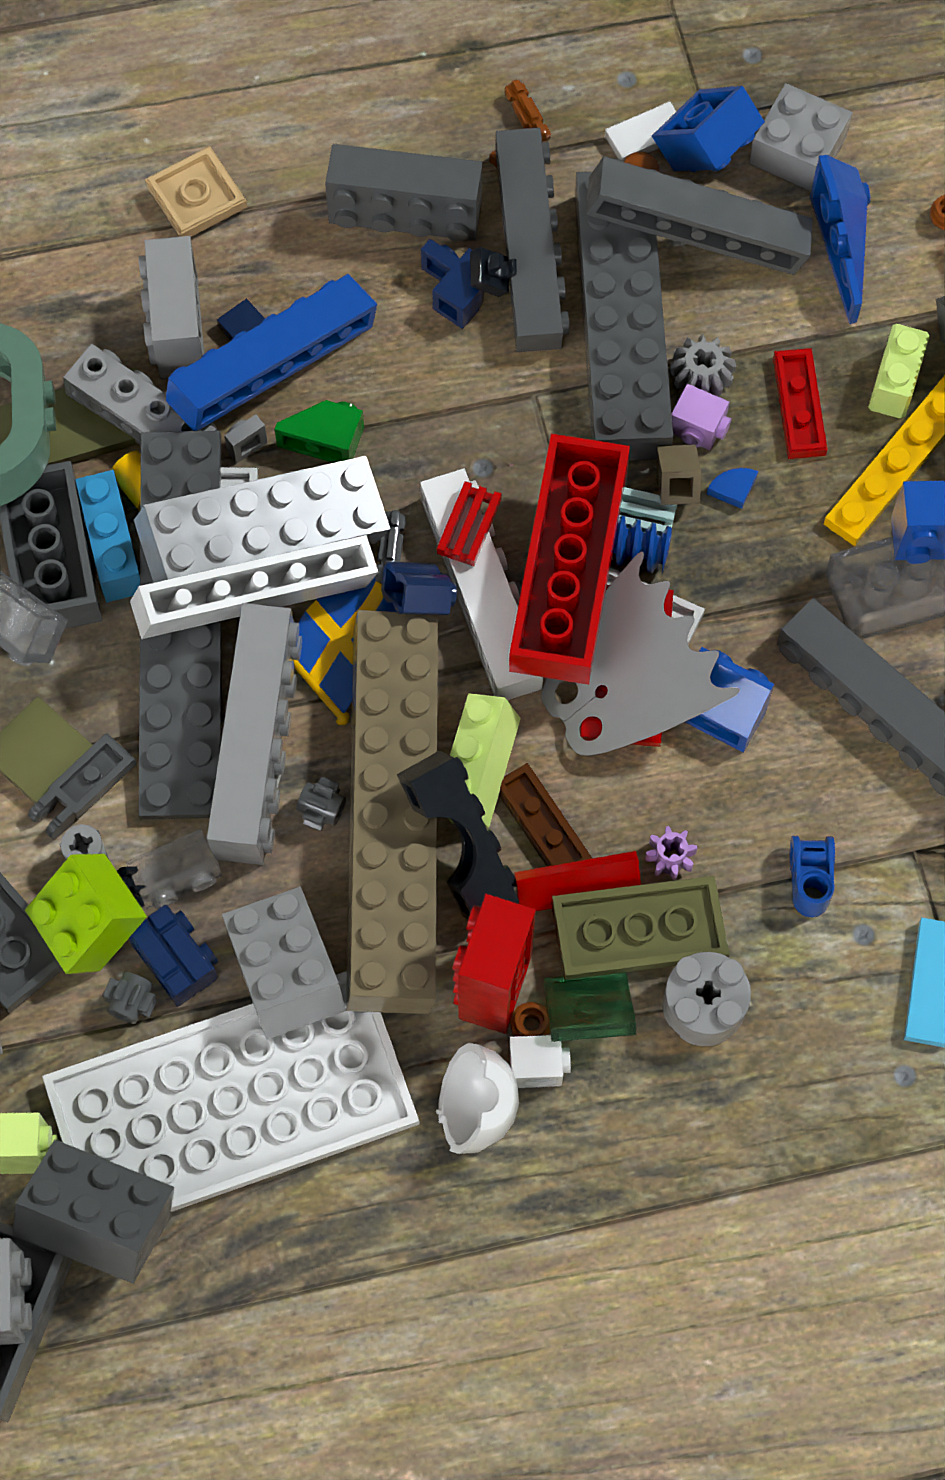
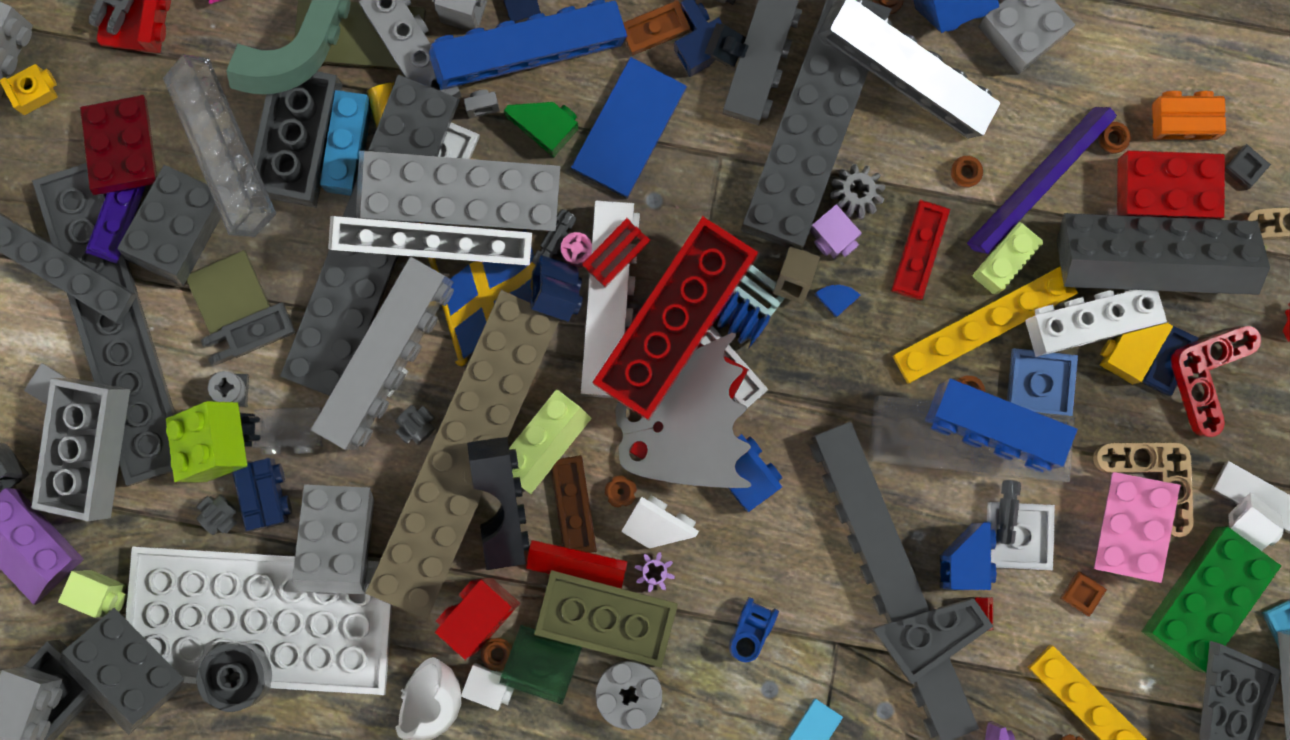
camera: 20 degrees right, 15 degrees up
(243, 1140) = (234, 695): none -> dark grey brick
(404, 290) = (656, 27): none -> dark orange plate
(420, 403) = (629, 127): none -> blue tile
(420, 537) = (578, 244): none -> bright pink wheel
(590, 774) = (612, 488): none -> dark orange plate
(653, 794) = (656, 527): none -> white slope
(813, 296) = (971, 163): none -> dark orange plate
(841, 214) = (1028, 103): blue wedge -> none
(893, 281) = (1041, 179): none -> dark purple tile

